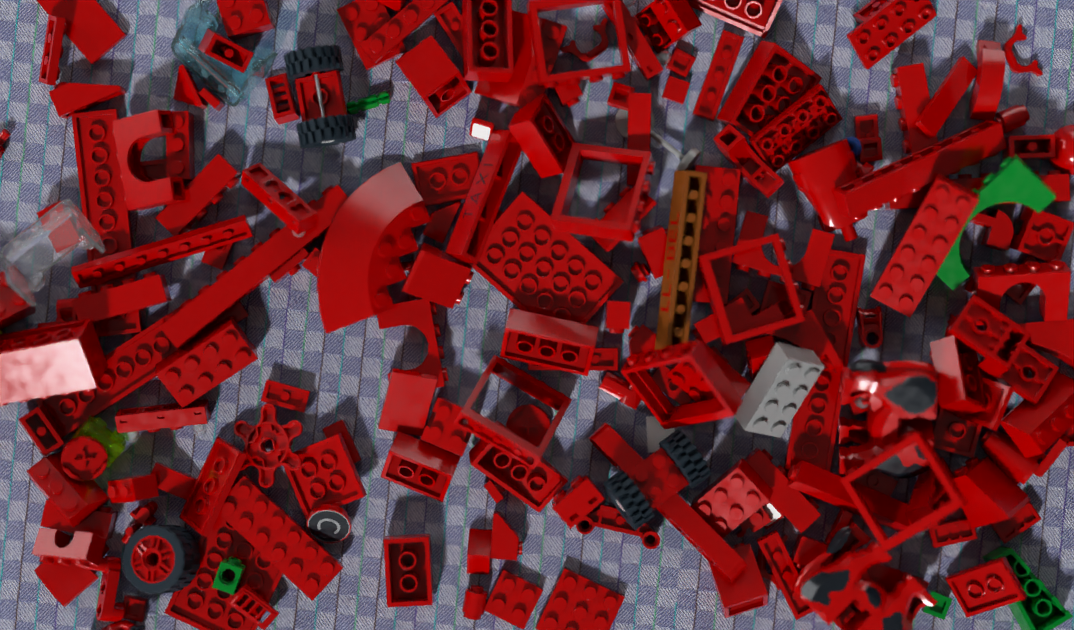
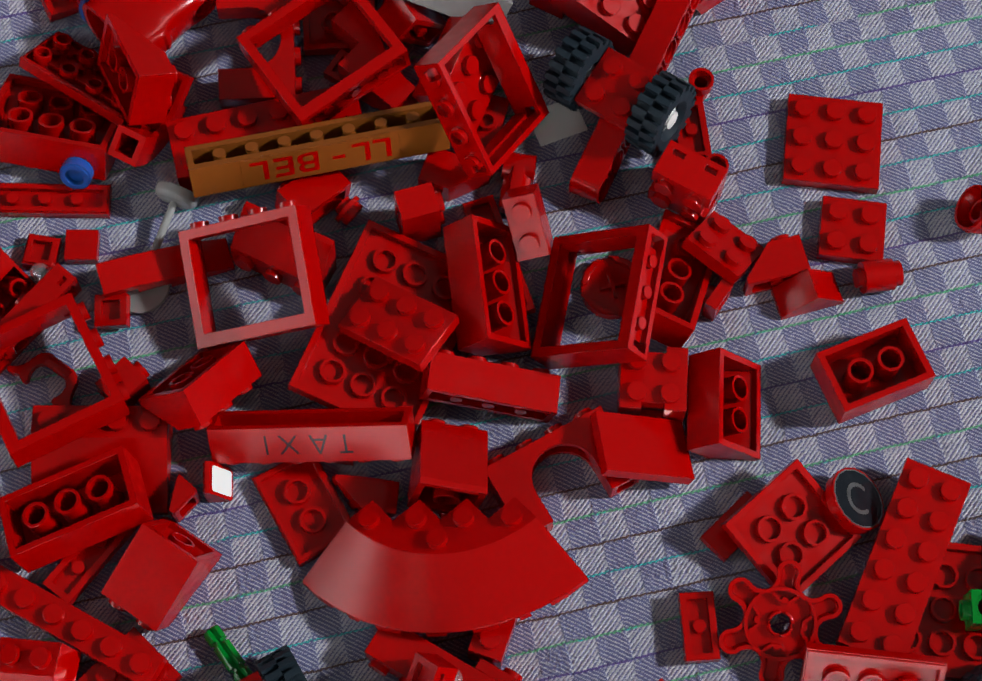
camera: 110 degrees left, 20 degrees down
(478, 105) = (183, 499): none -> red slope
(481, 320) = (491, 386): none -> red brick
(526, 507) = (723, 247): none -> red plate
(538, 274) = (399, 323): none -> red plate
(585, 385) = (528, 222): none -> red brick
(725, 100) = (76, 173): none -> blue tile
(777, 158) = (136, 73): none -> red slope

